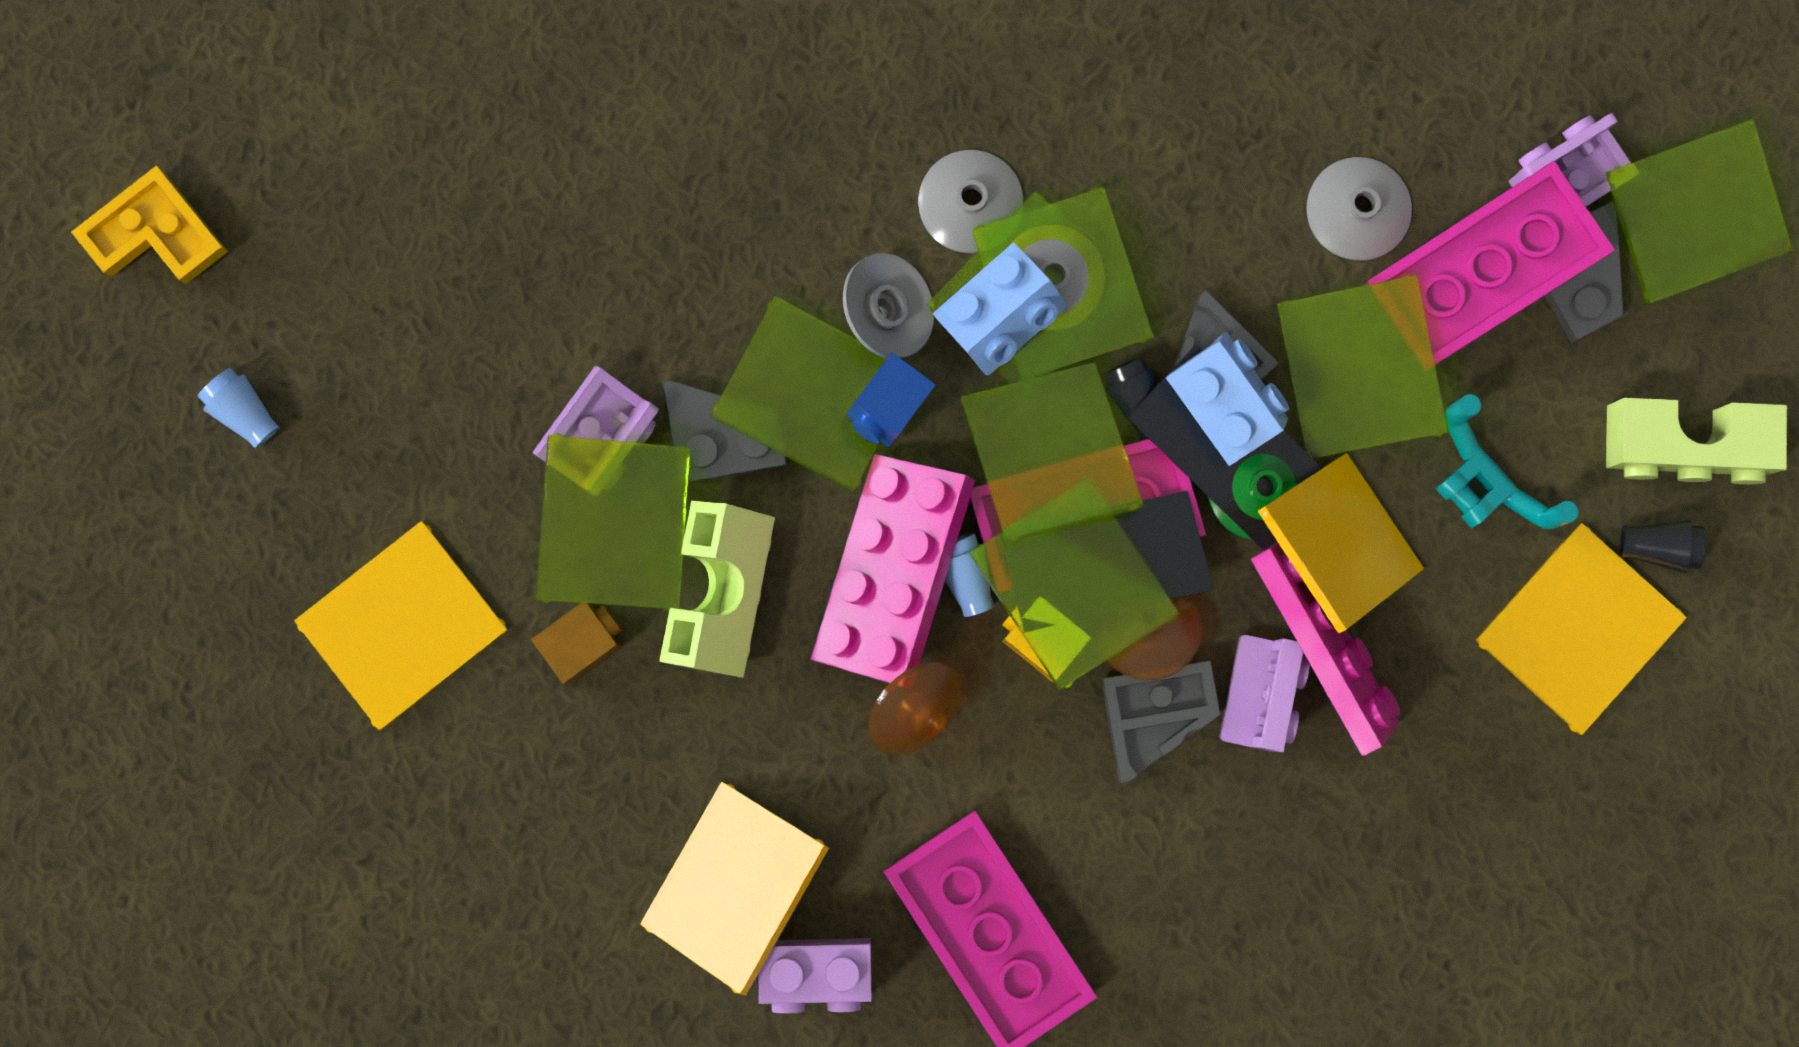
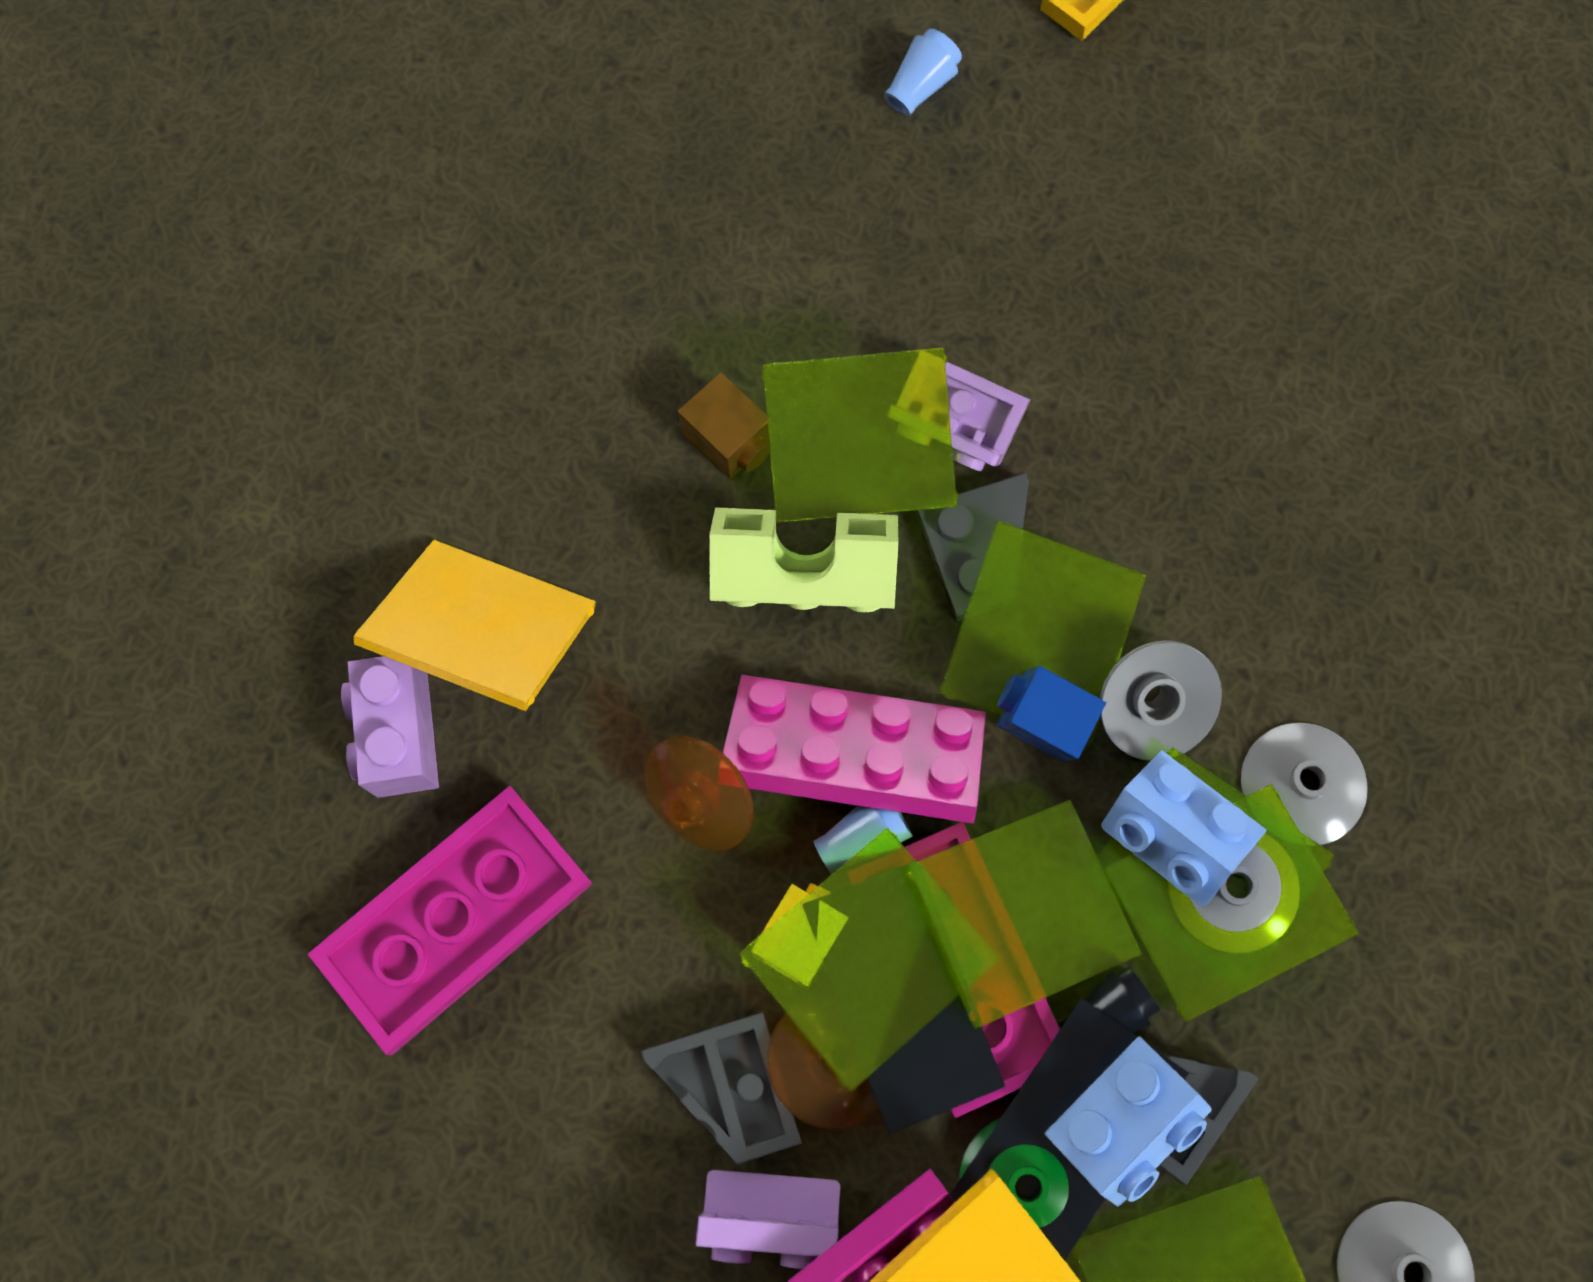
camera: 90 degrees right, 10 degrees down
(401, 625) = (723, 260): yellow piece -> none

